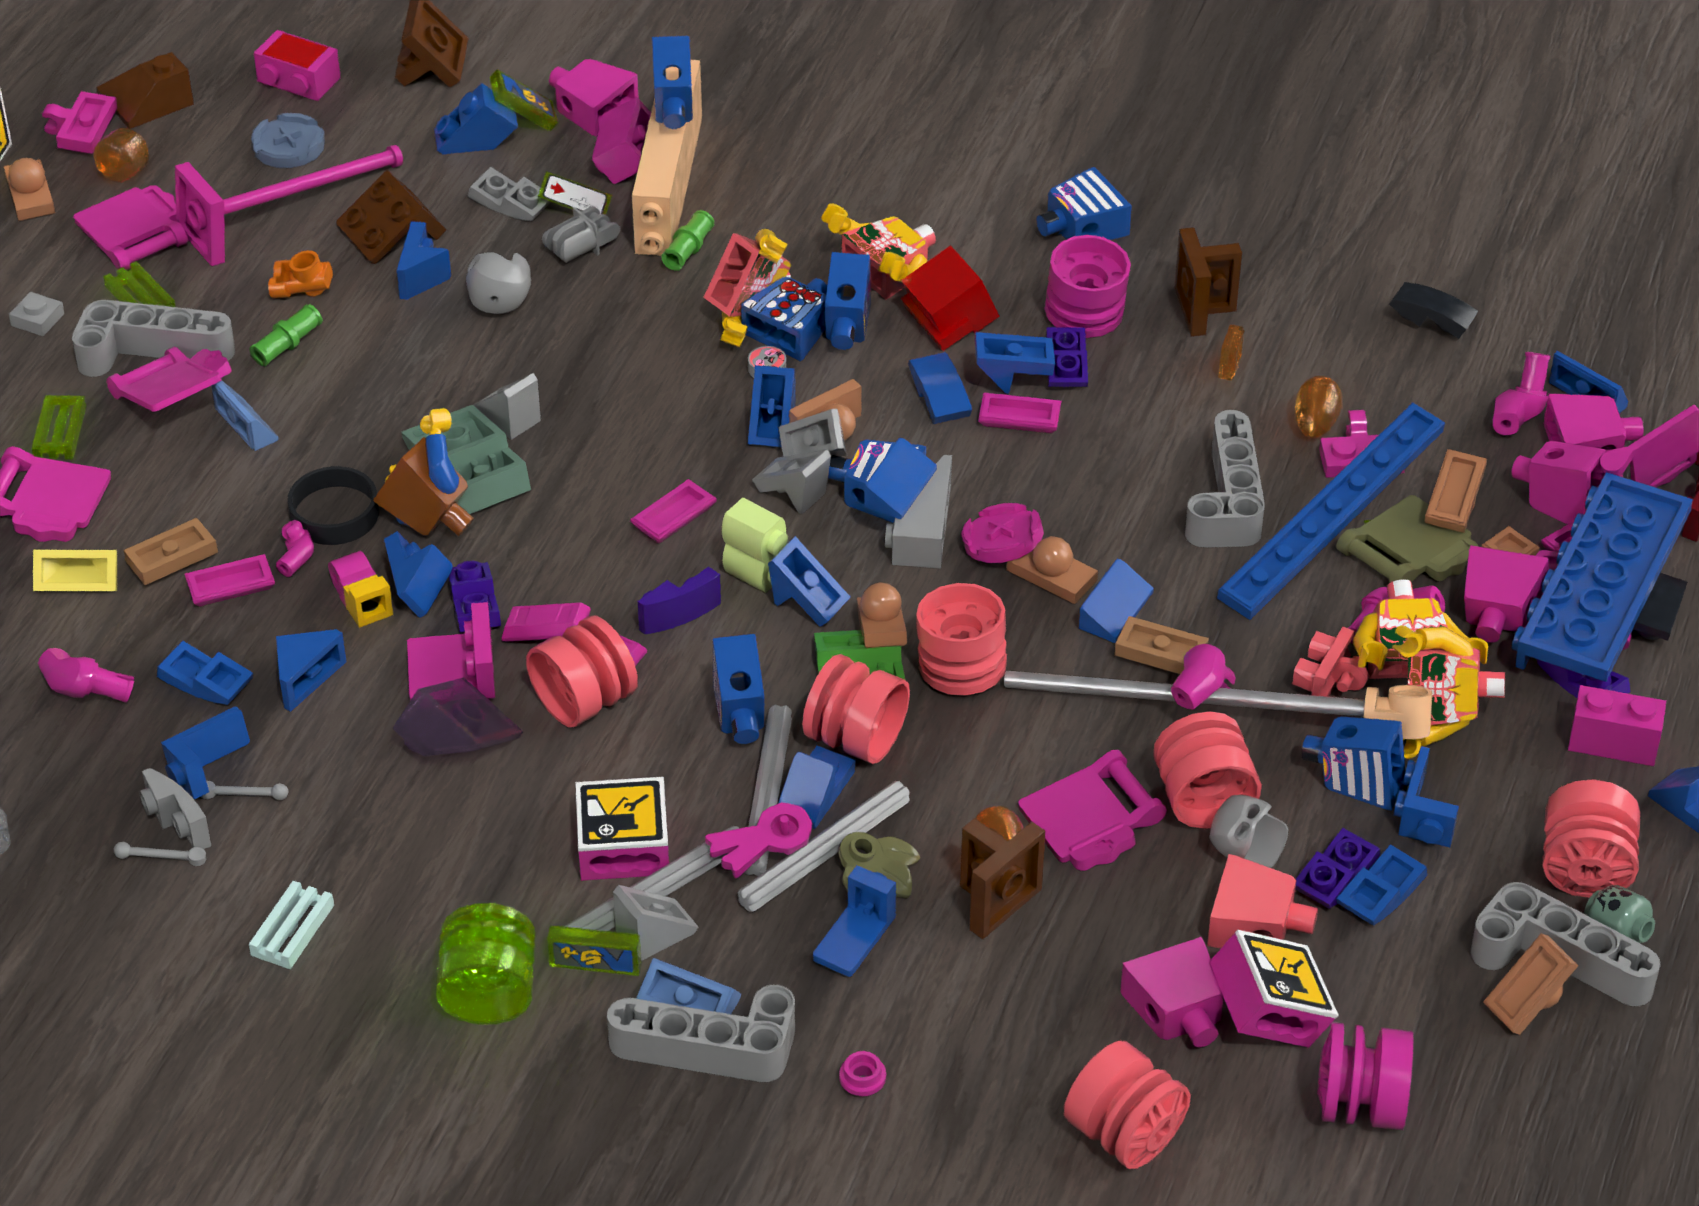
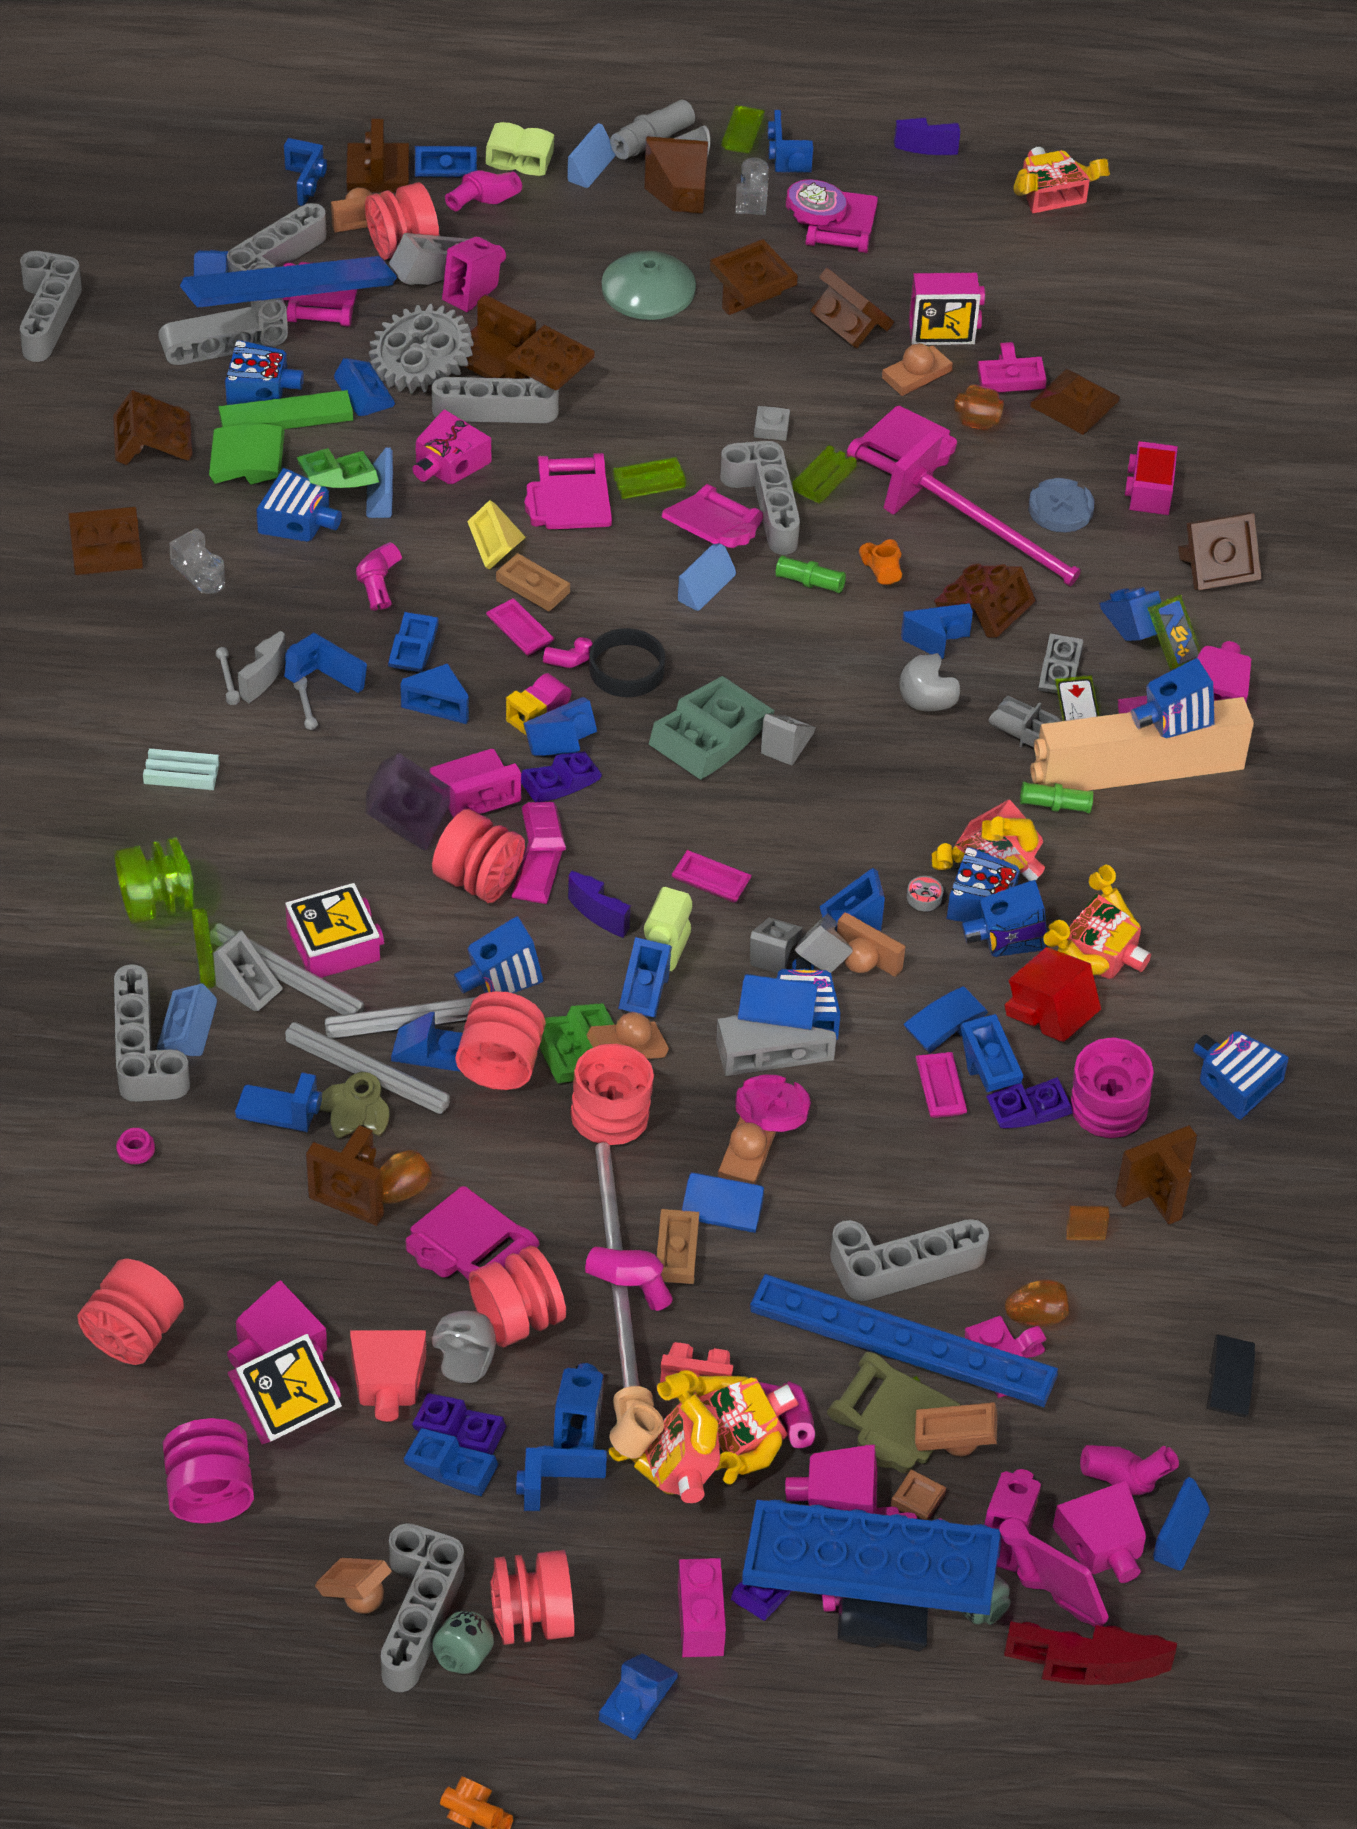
camera: 70 degrees right, 5 degrees up
(424, 483) = (643, 698): dark orange torso -> none
(780, 829) = (355, 1027): dark pink piece -> none

